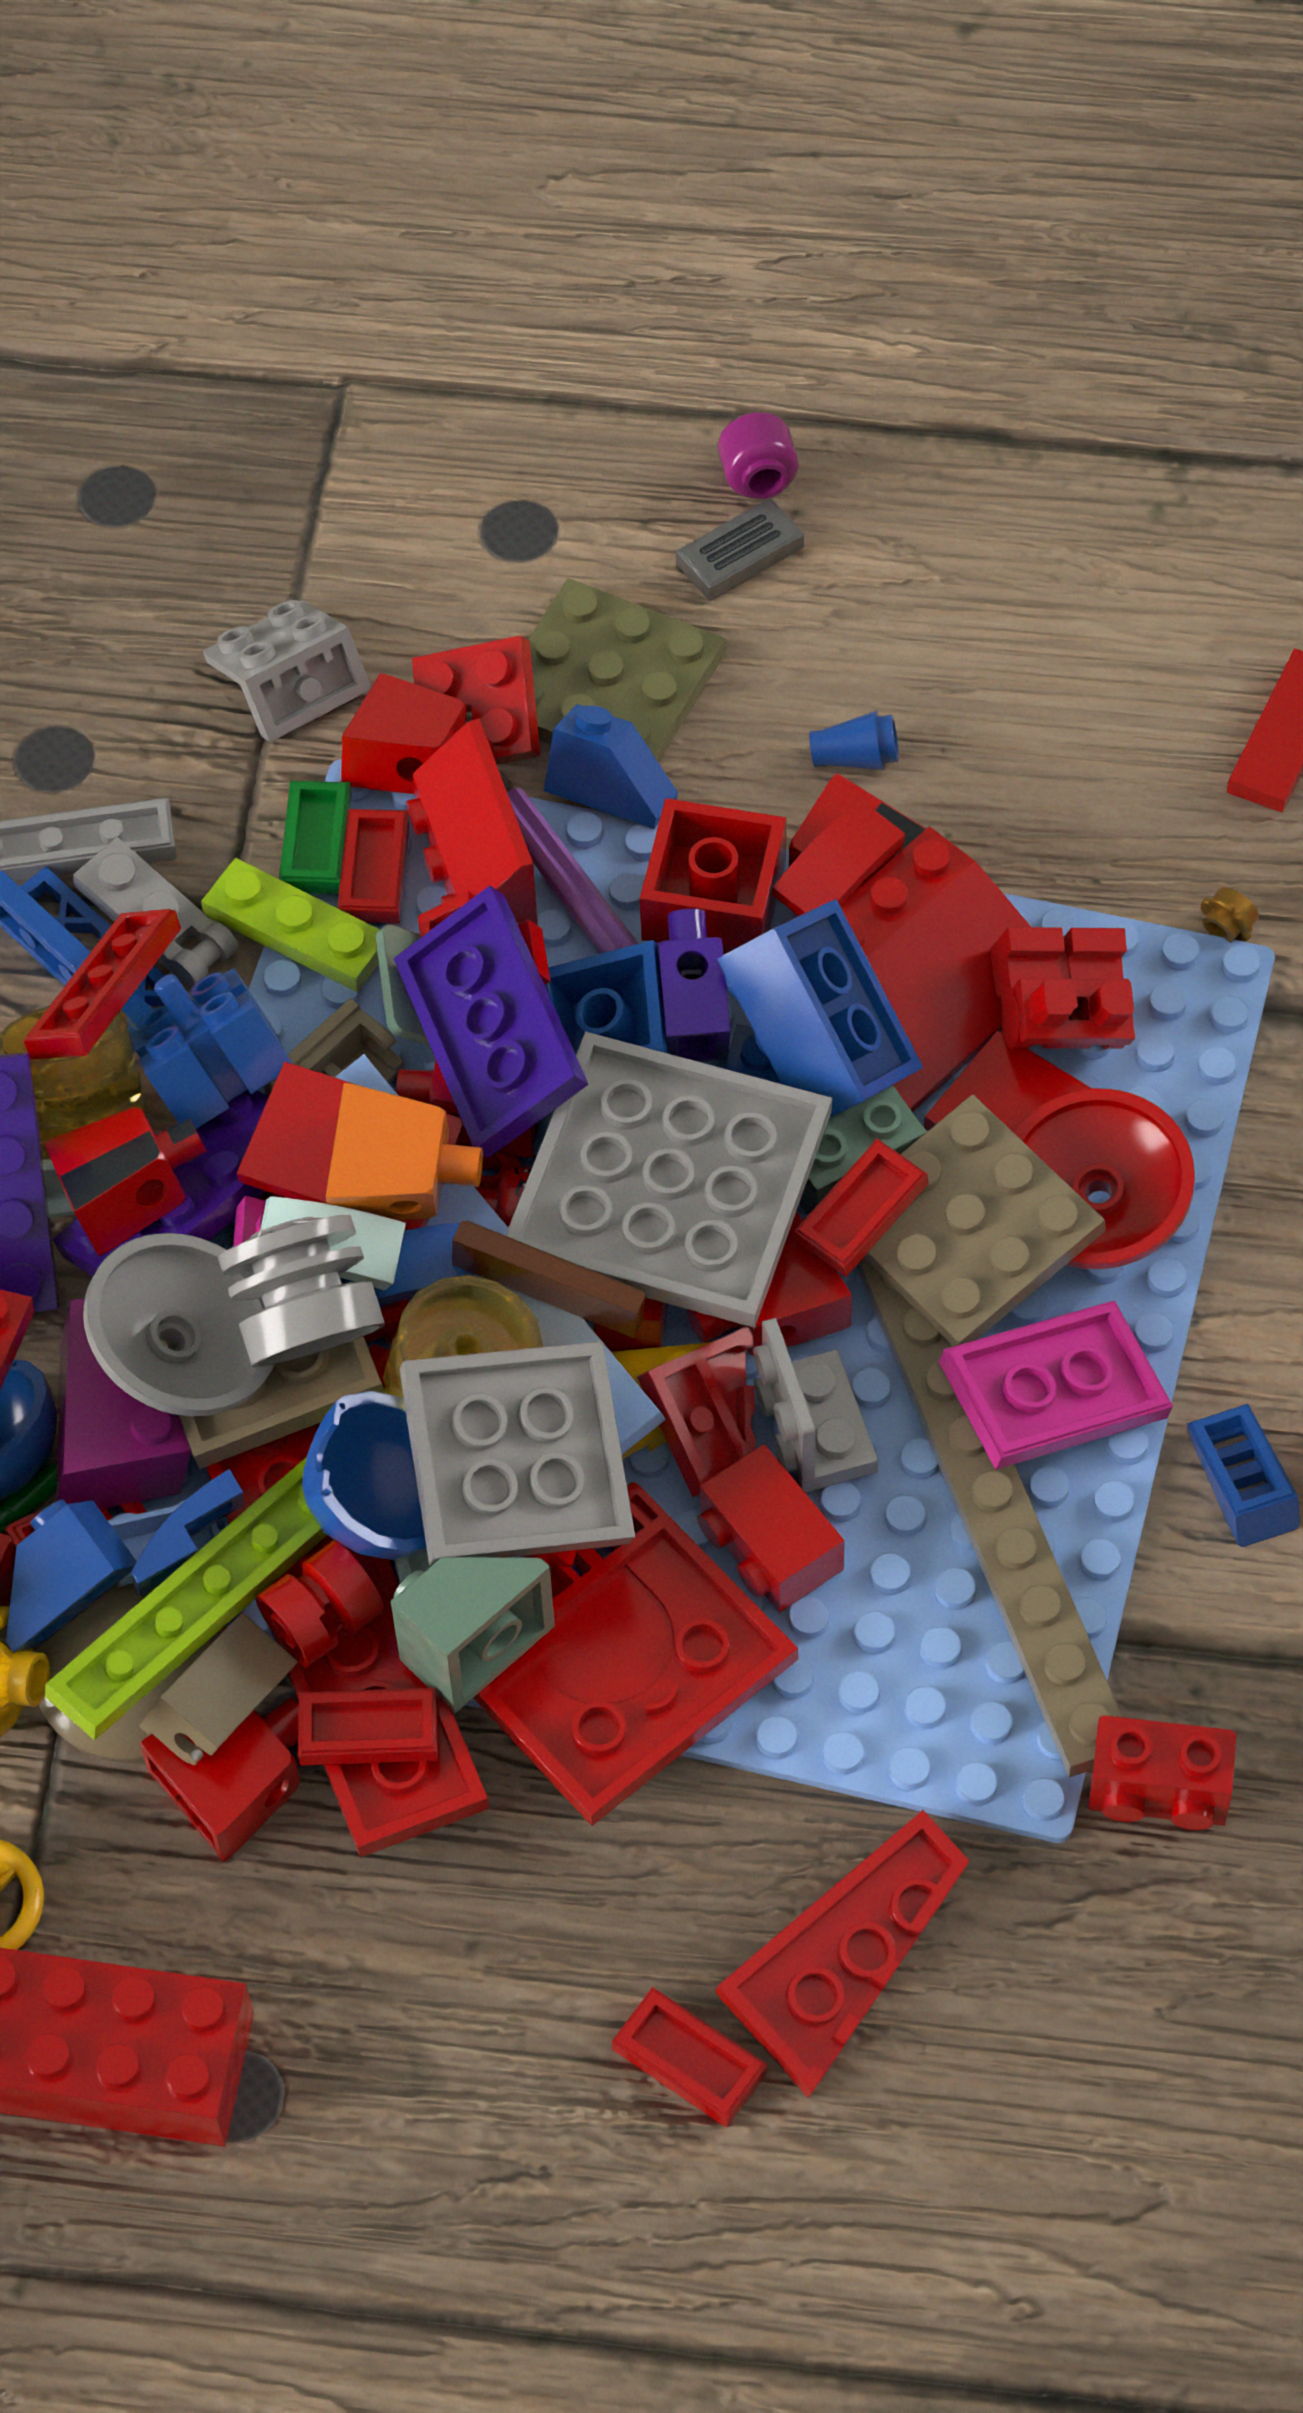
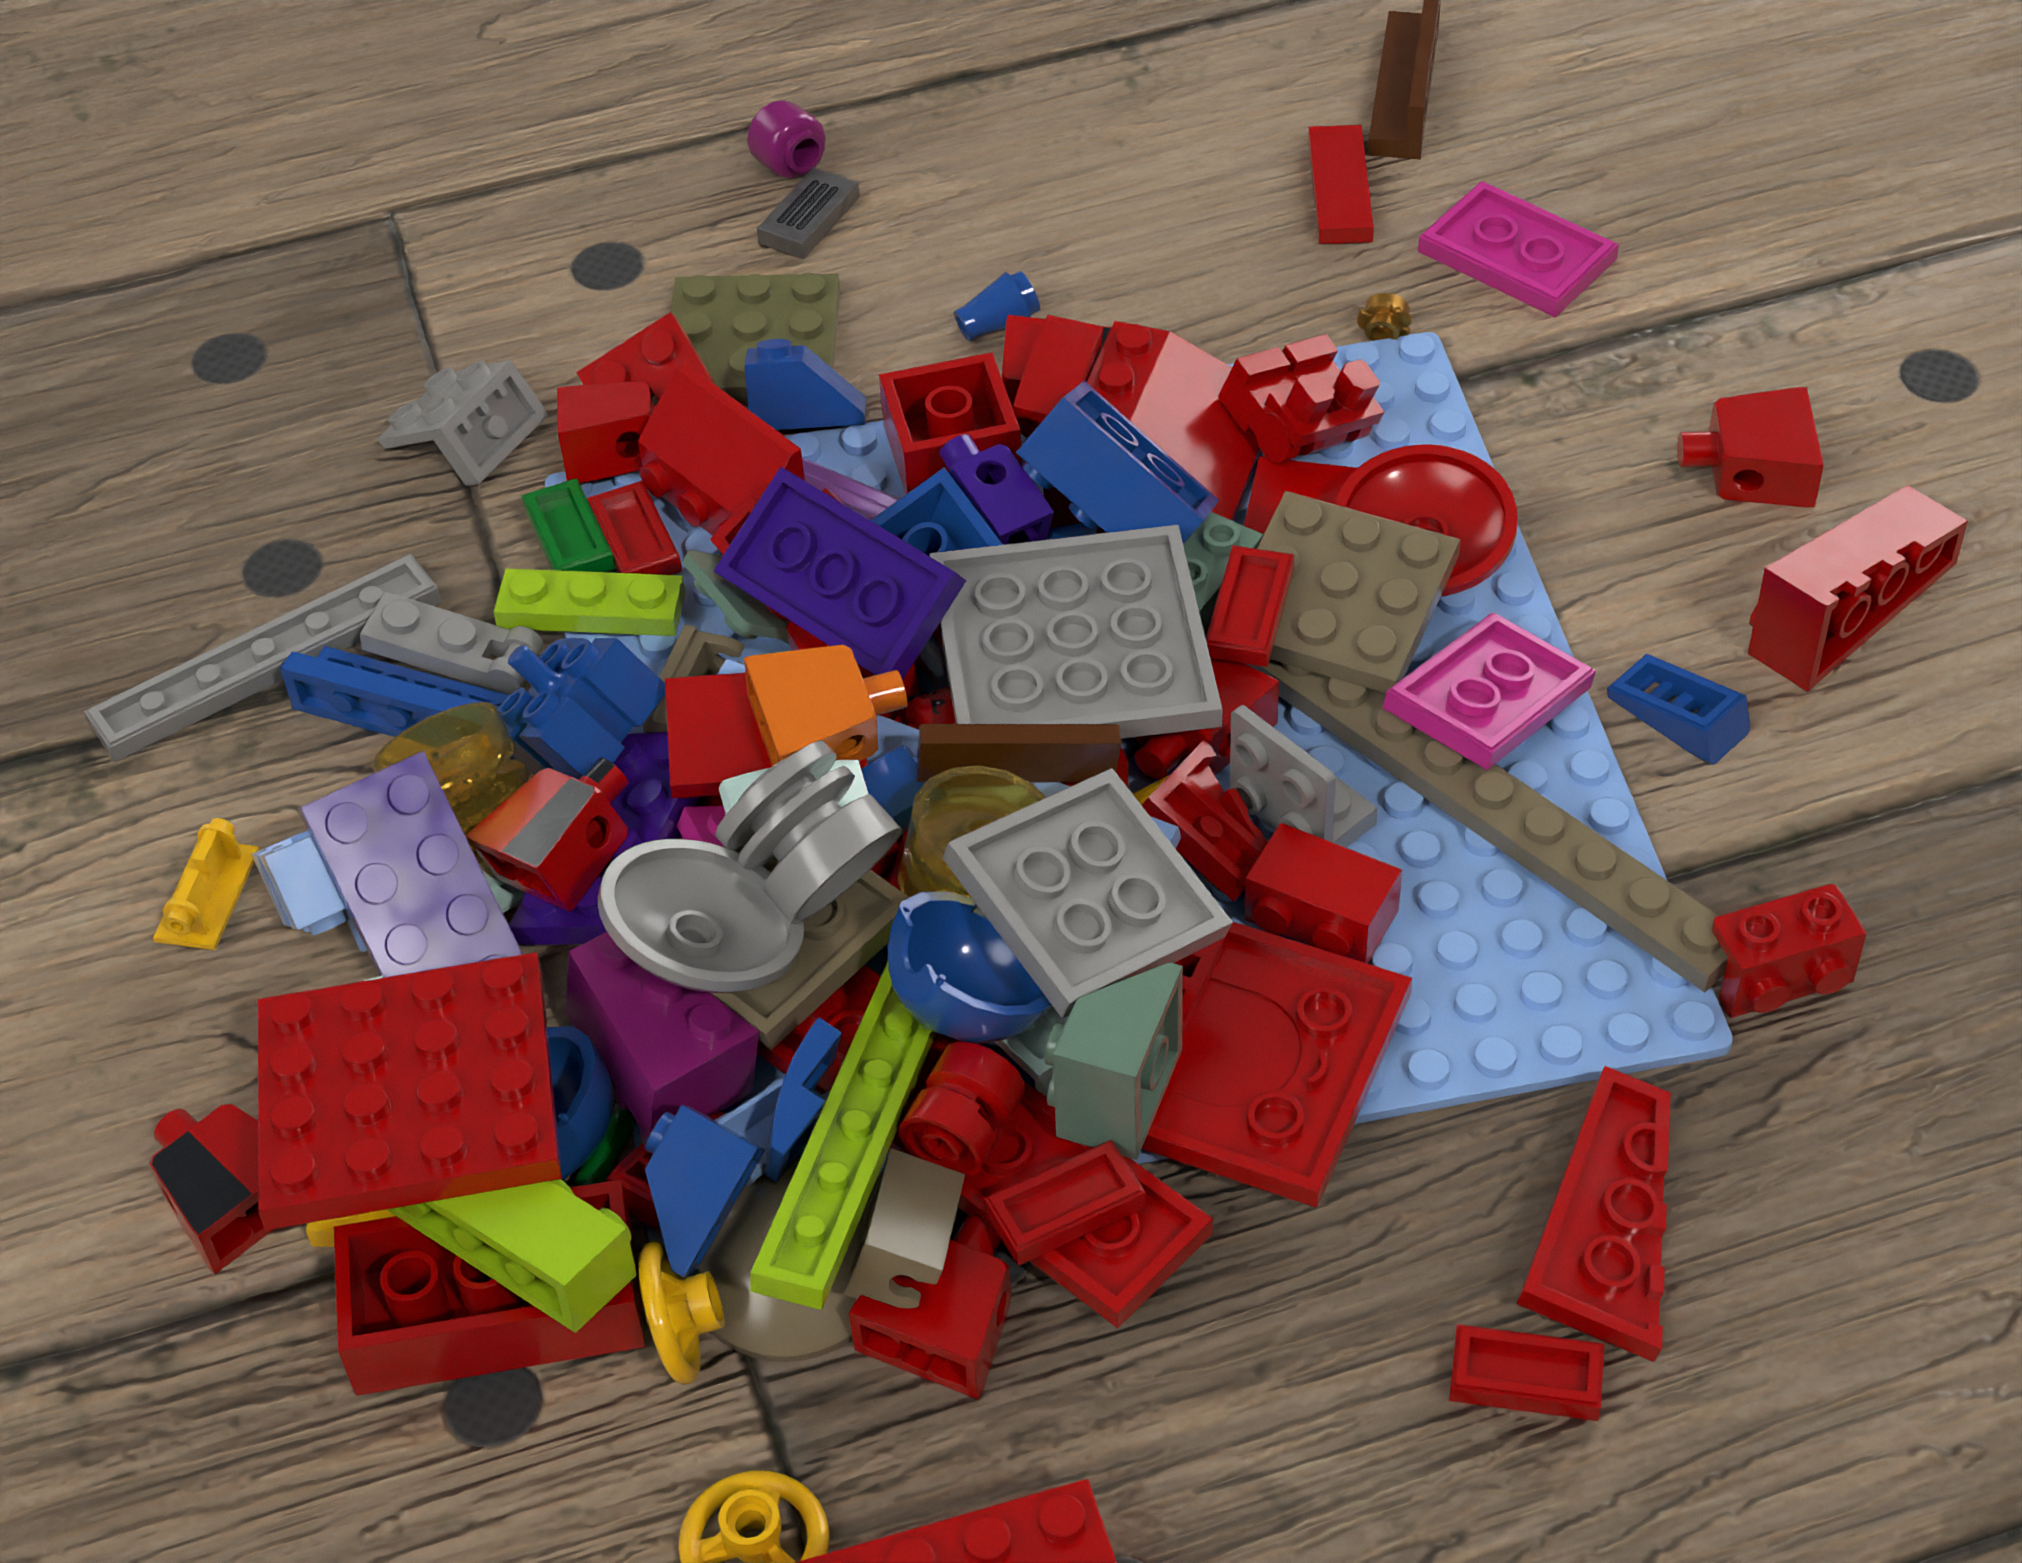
camera: 25 degrees left, 10 degrees down
(102, 984) = (449, 690): red tile -> none

